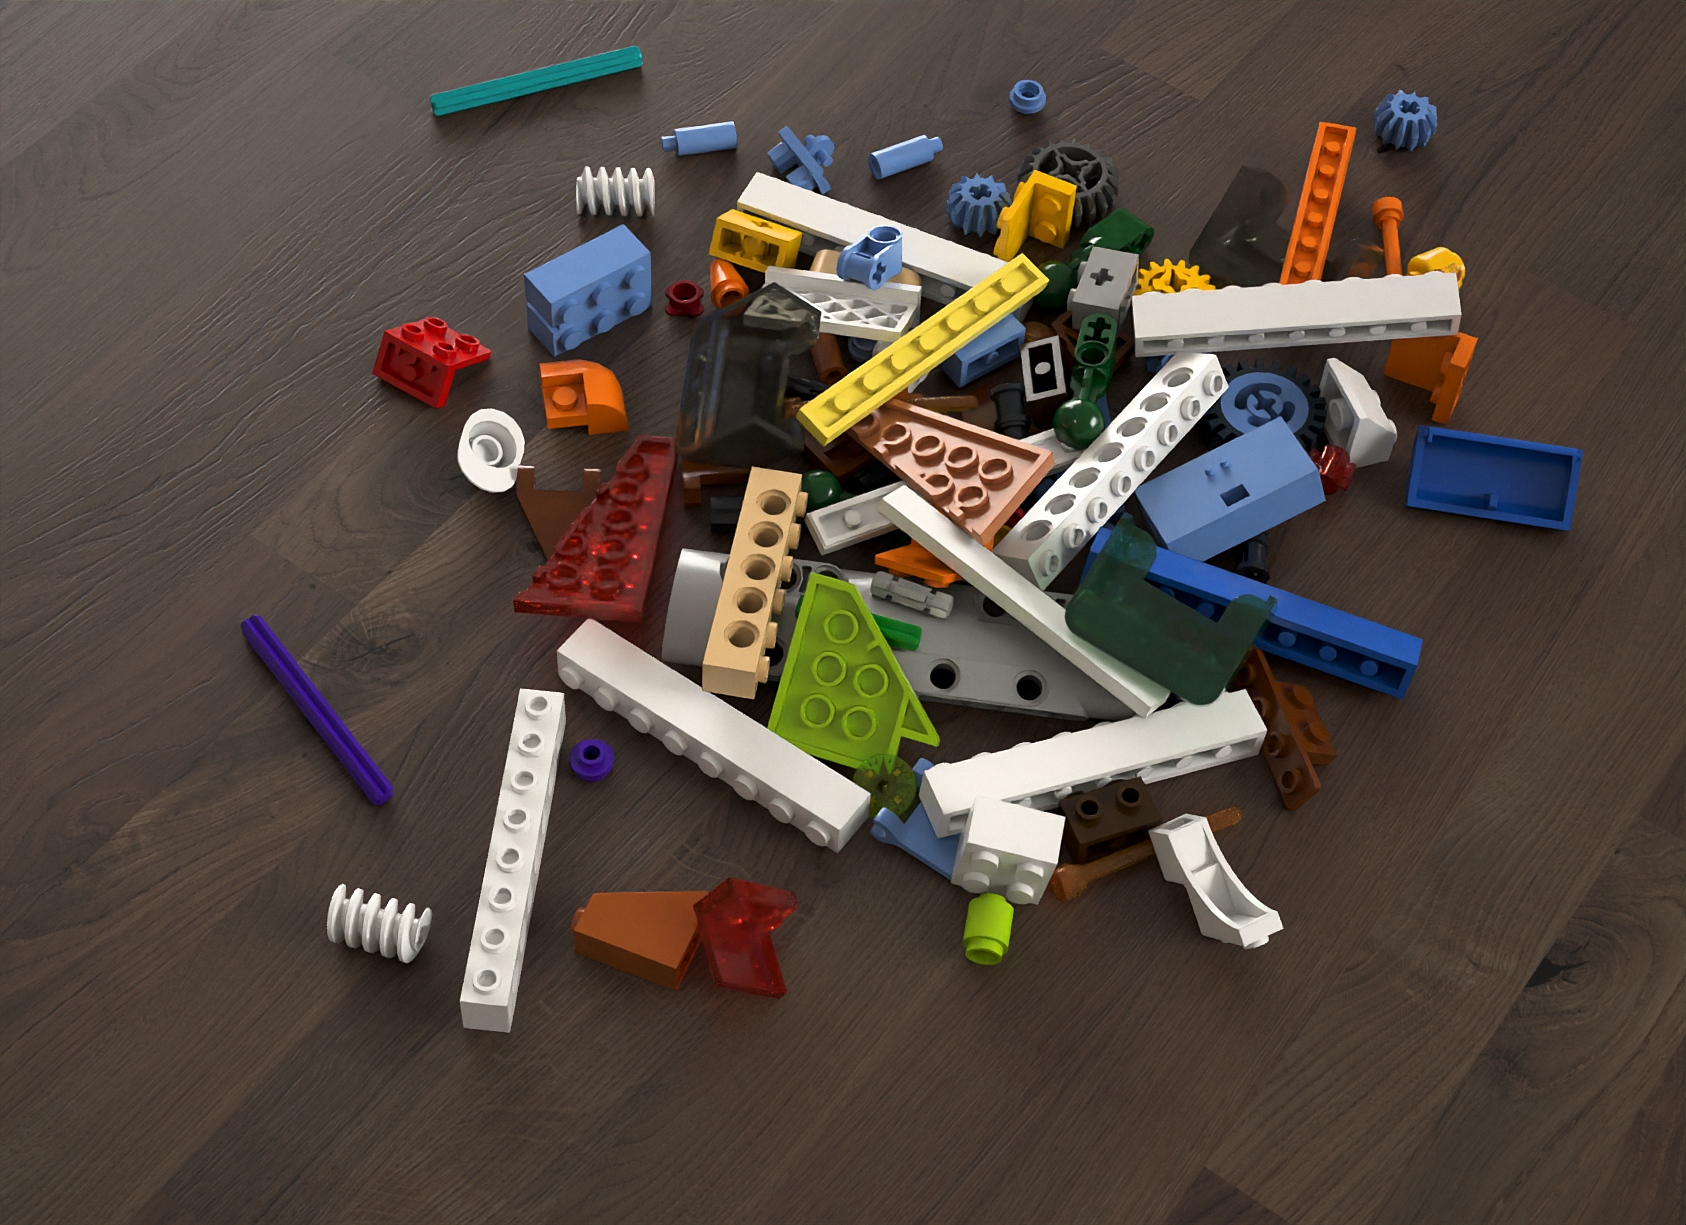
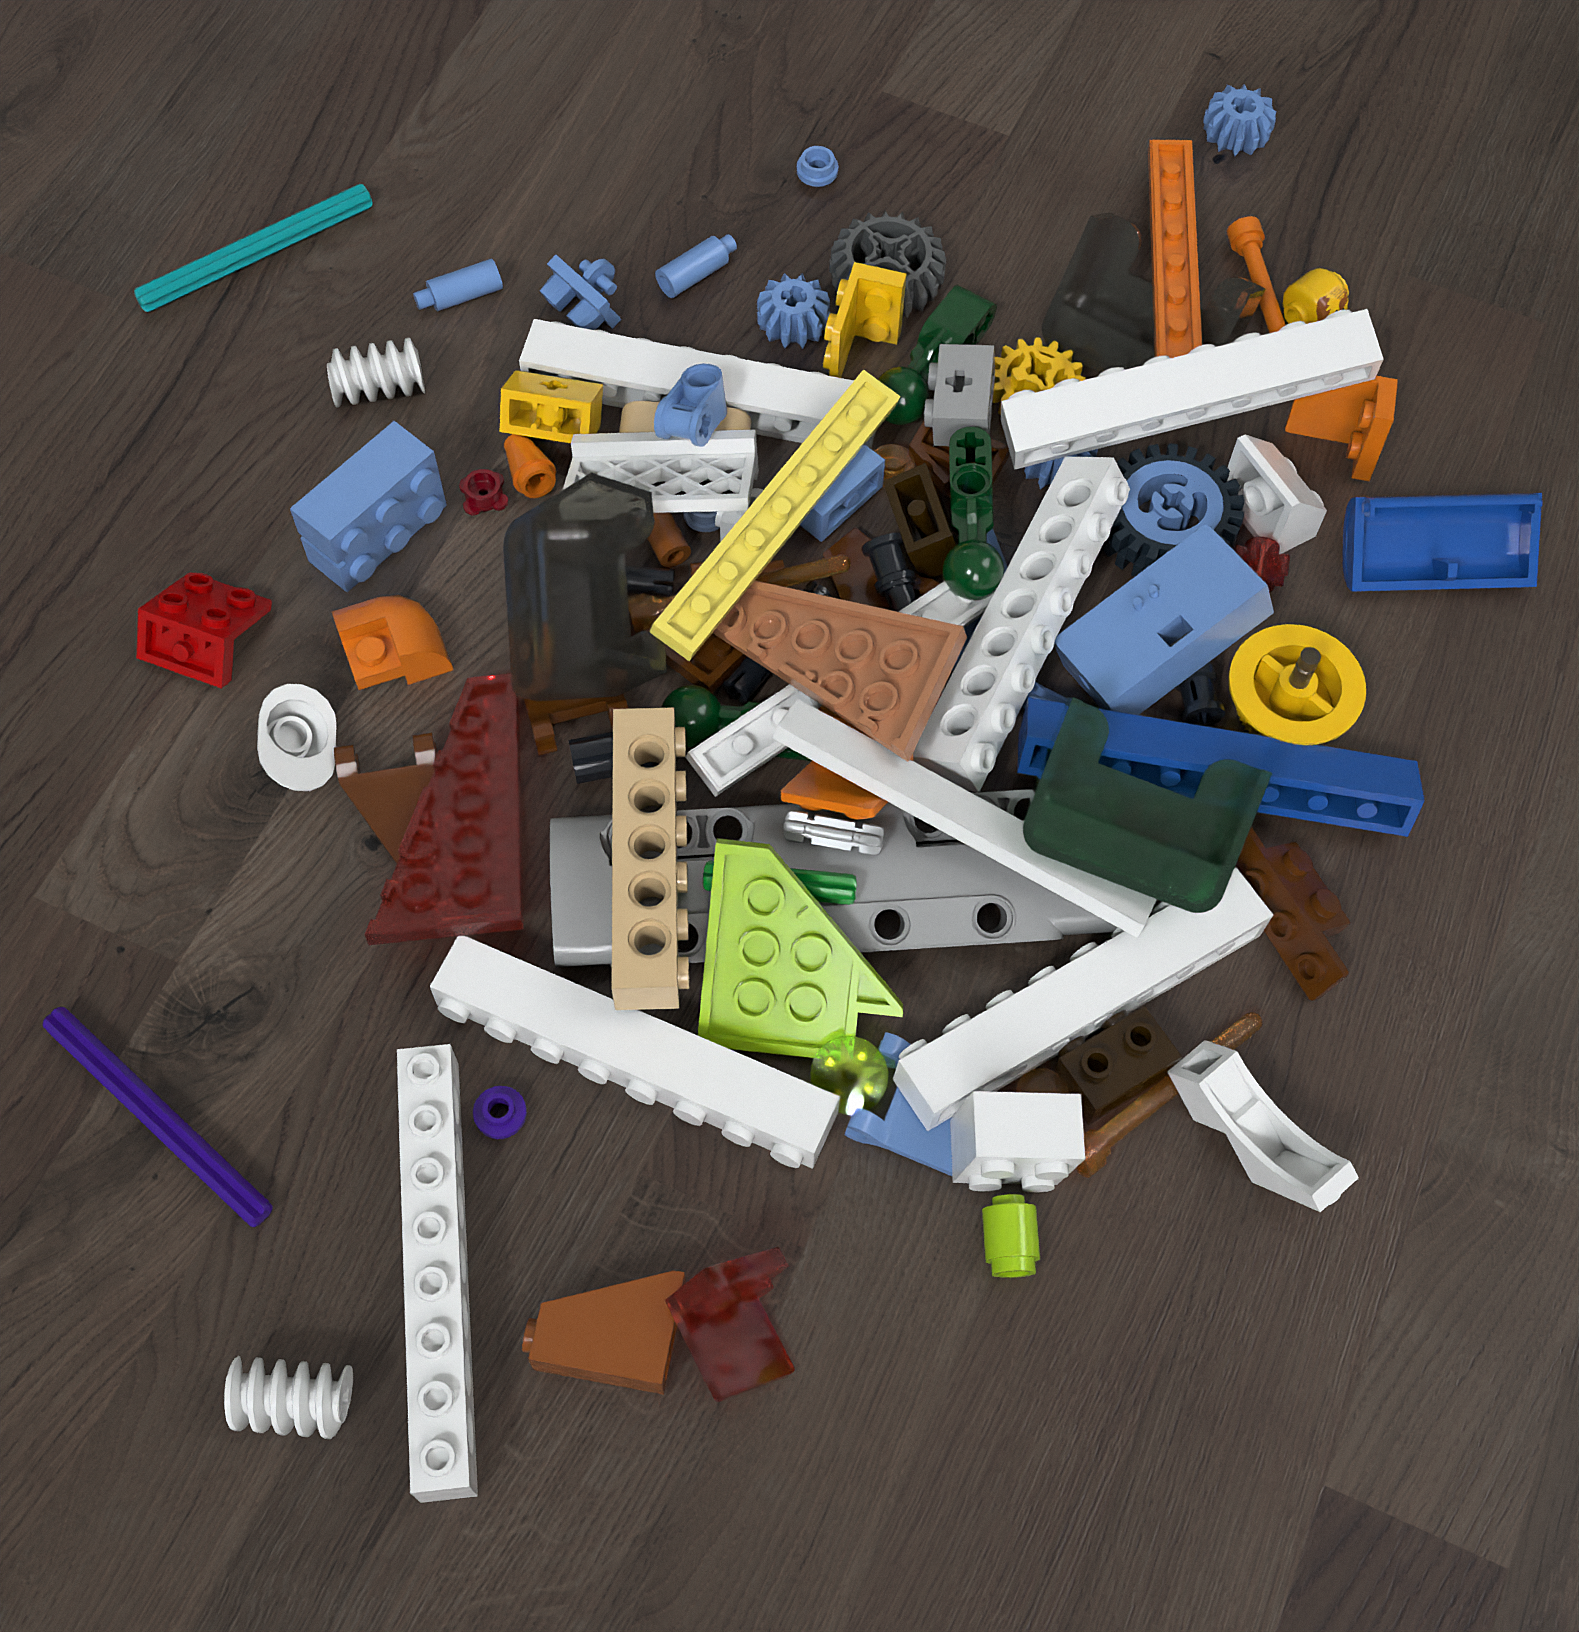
camera: 10 degrees left, 10 degrees up
(1333, 561) = (1296, 685): none -> yellow piece

